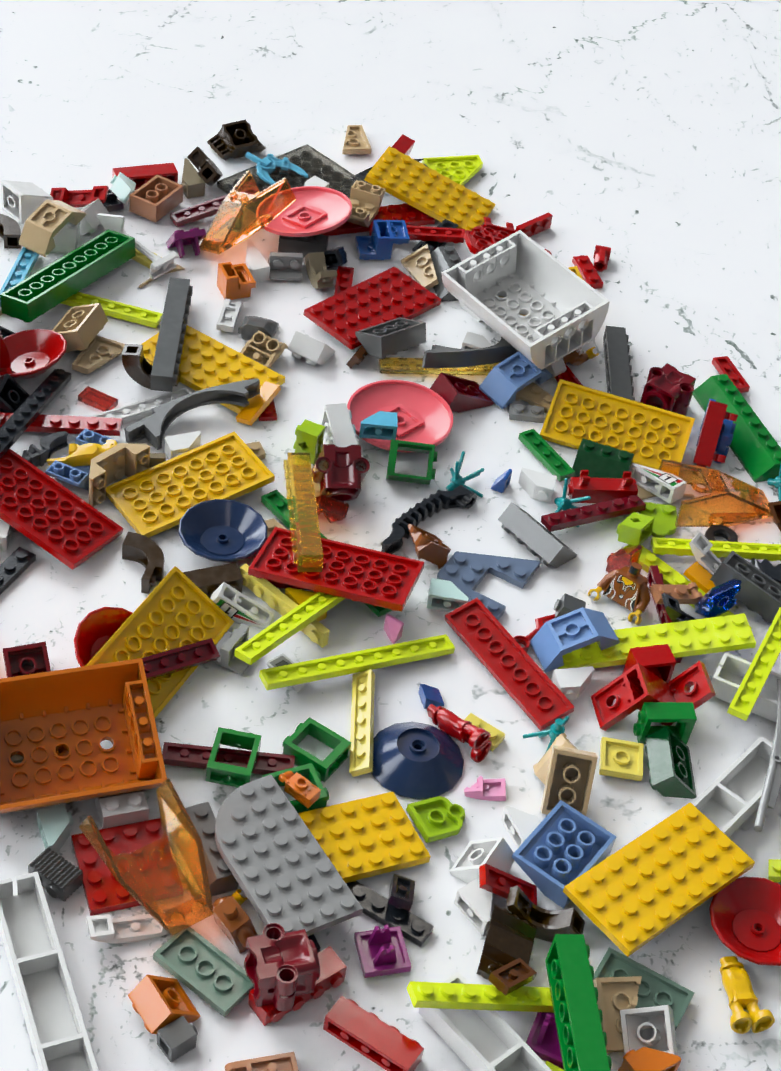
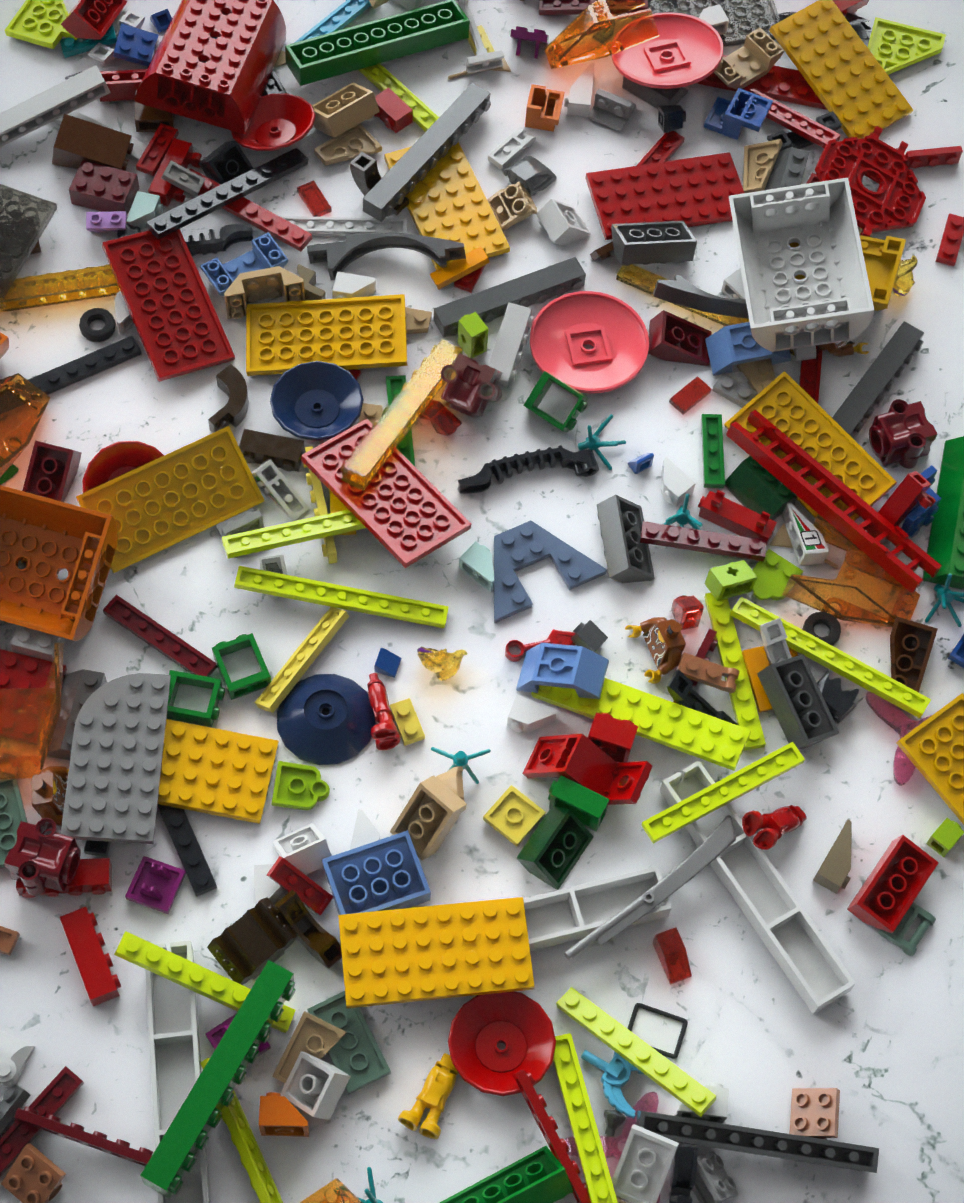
camera: 35 degrees right, 20 degrees up
(83, 454) = (247, 261): yellow animal -> none
(119, 319) = (393, 111): none -> brick
(180, 658) = (164, 519): dark red plate -> none
(219, 772) = (156, 664): green window -> none
(300, 788) = (187, 699): orange piece -> none
(318, 272) = (641, 129): dark tan arch -> none
(333, 390) = (523, 291): none -> dark grey brick
(380, 426) = (551, 348): medium azure slope -> none
(393, 628) = (405, 578): bright pink slope -> none
(401, 892) = (209, 840): black plate -> none
(429, 546) = (504, 502): dark orange slope -> none
(474, 675) = (441, 662): none -> clear yellow hair
(487, 789) = (367, 782): bright pink slope -> none
(497, 427) = (690, 395): none -> clear red tile
(509, 664) = (484, 666): red plate -> none
(512, 976) = (224, 971): reddish brown plate -> none
(664, 446) = (825, 506): none -> red ladder
(718, 599) = (742, 702): clear blue slope -> none

